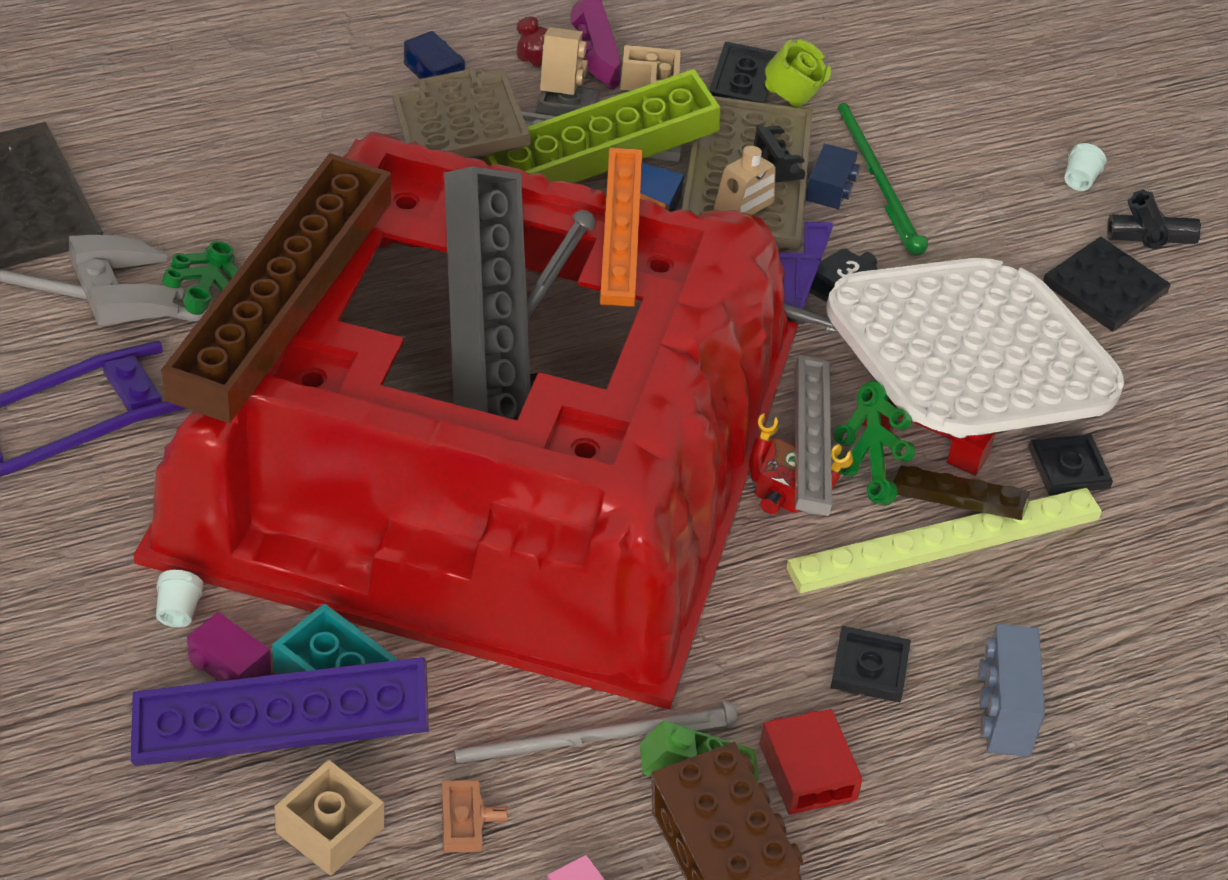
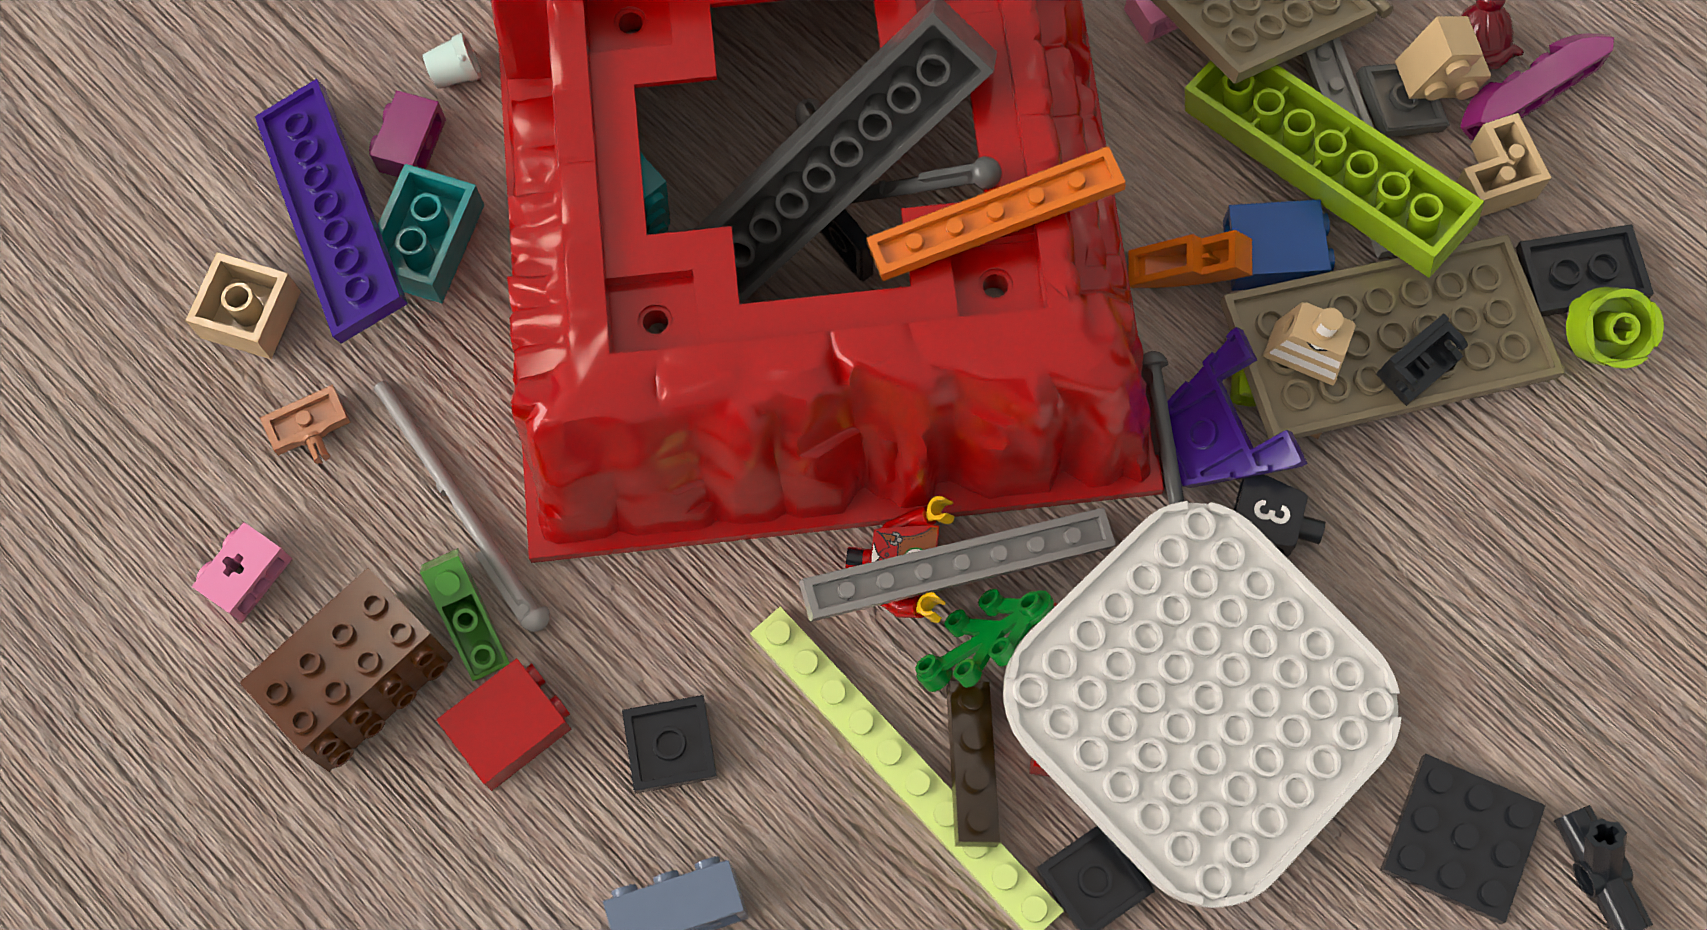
camera: 75 degrees right, 25 degrees up
(832, 176) = (1452, 438): dark blue brick -> none
(914, 243) = (1387, 577): green bar -> none
(1084, 166) = (1670, 744): light aqua piece -> none

